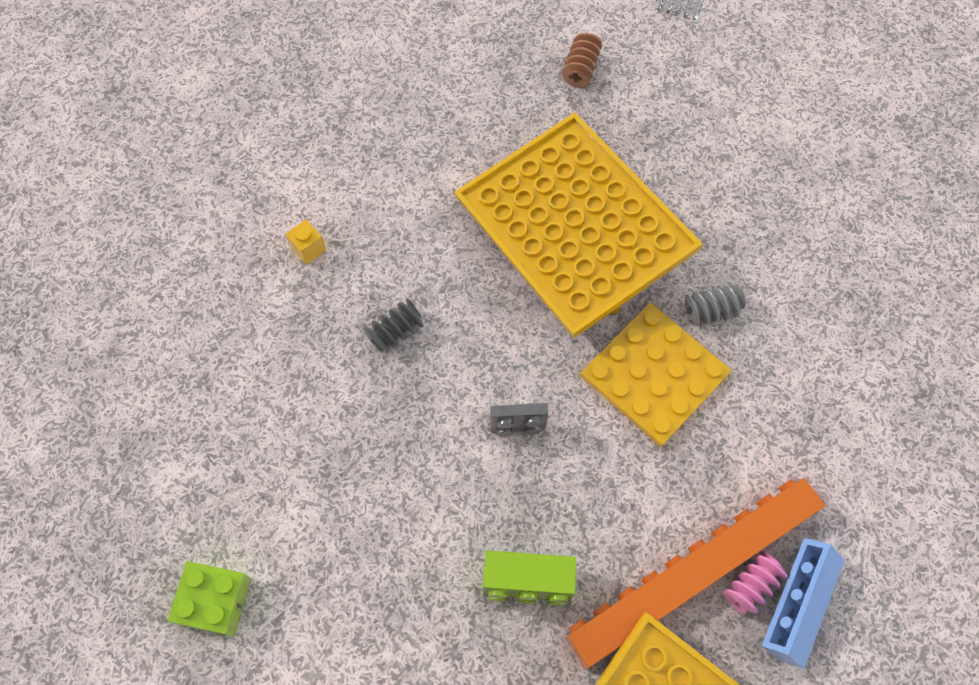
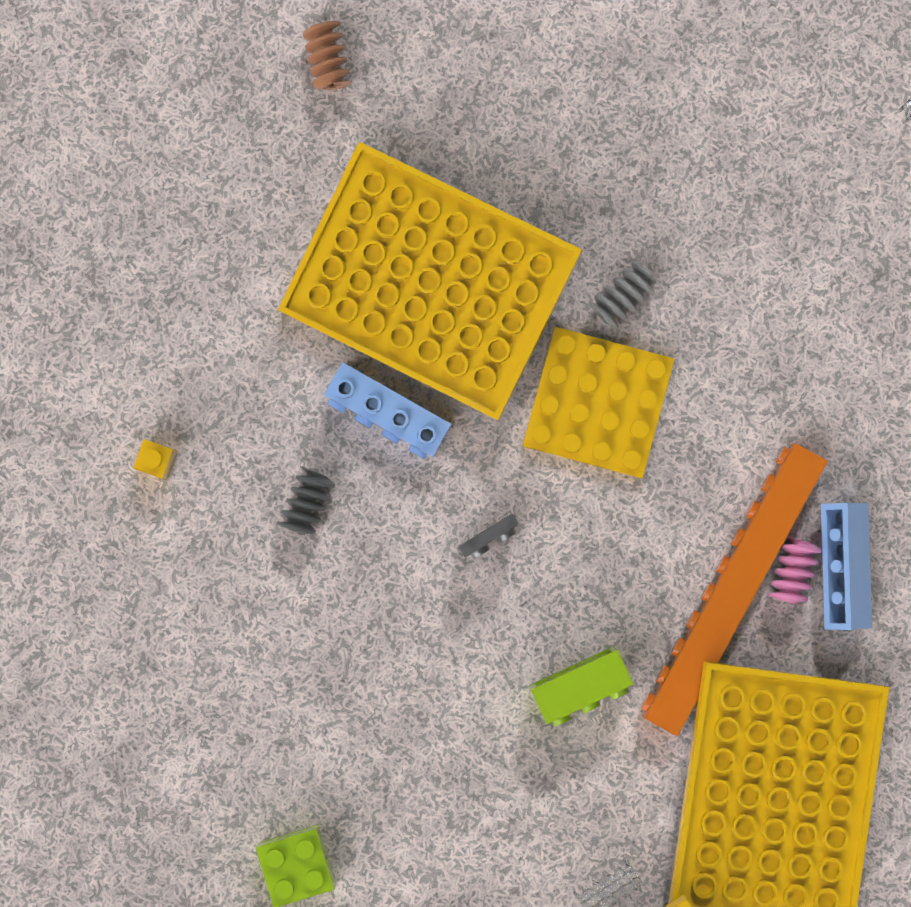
camera: 25 degrees left, 20 degrees up
(493, 295) = (387, 410): none -> light blue brick

